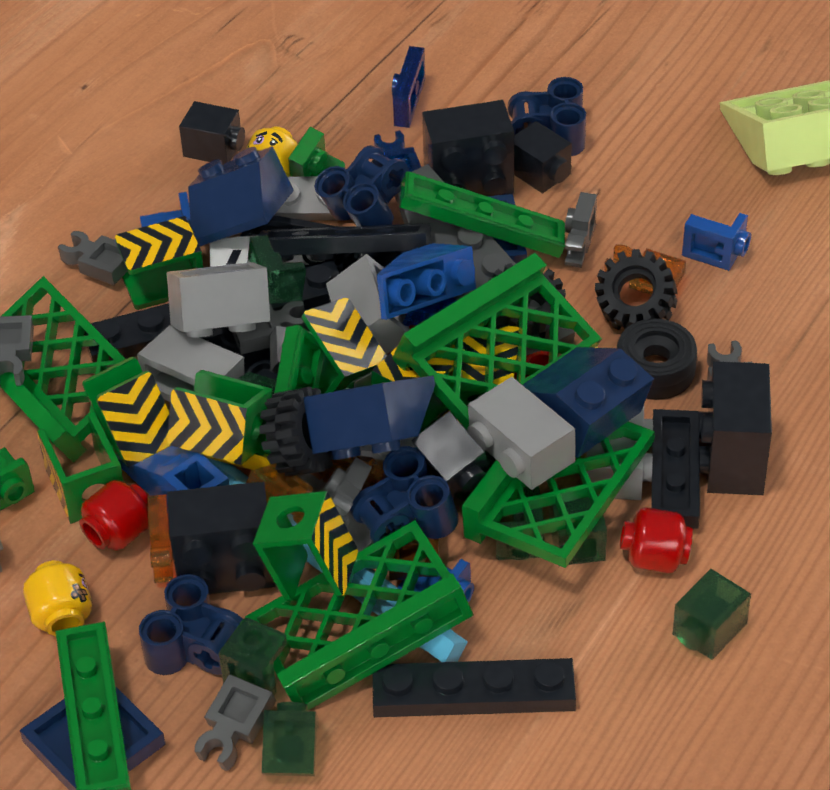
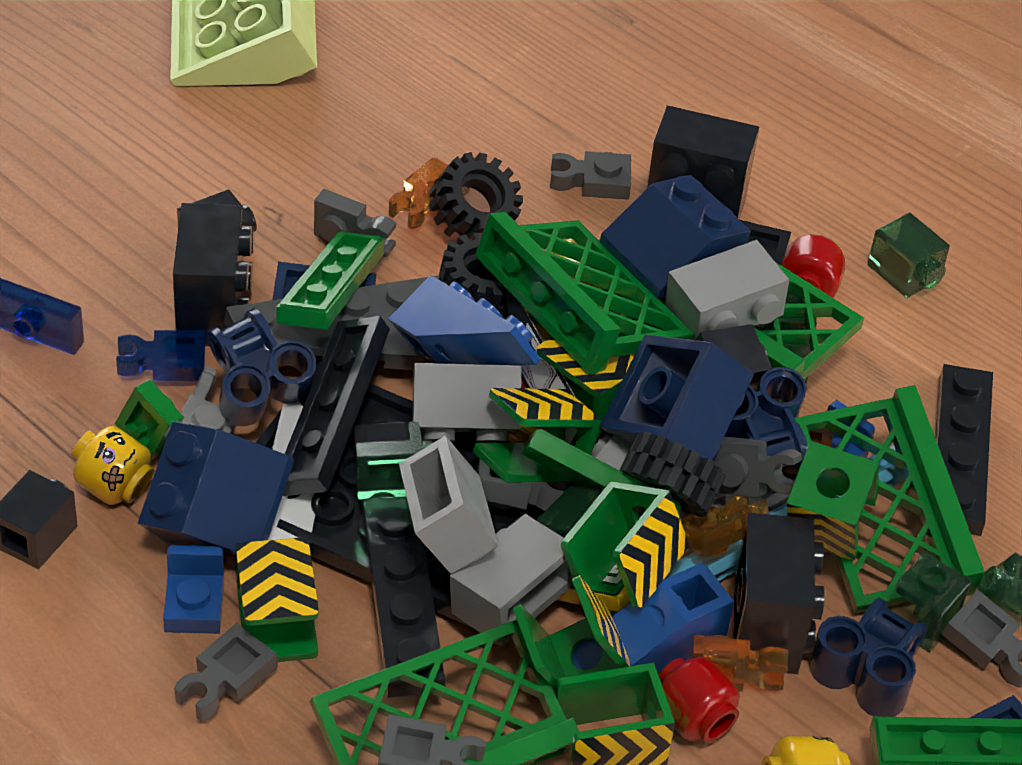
camera: 85 degrees left, 0 degrees up
(556, 109) = (147, 204): dark blue piece -> none
(666, 340) = (563, 195): black tyre -> none
(716, 242) = (407, 129): blue bracket -> none

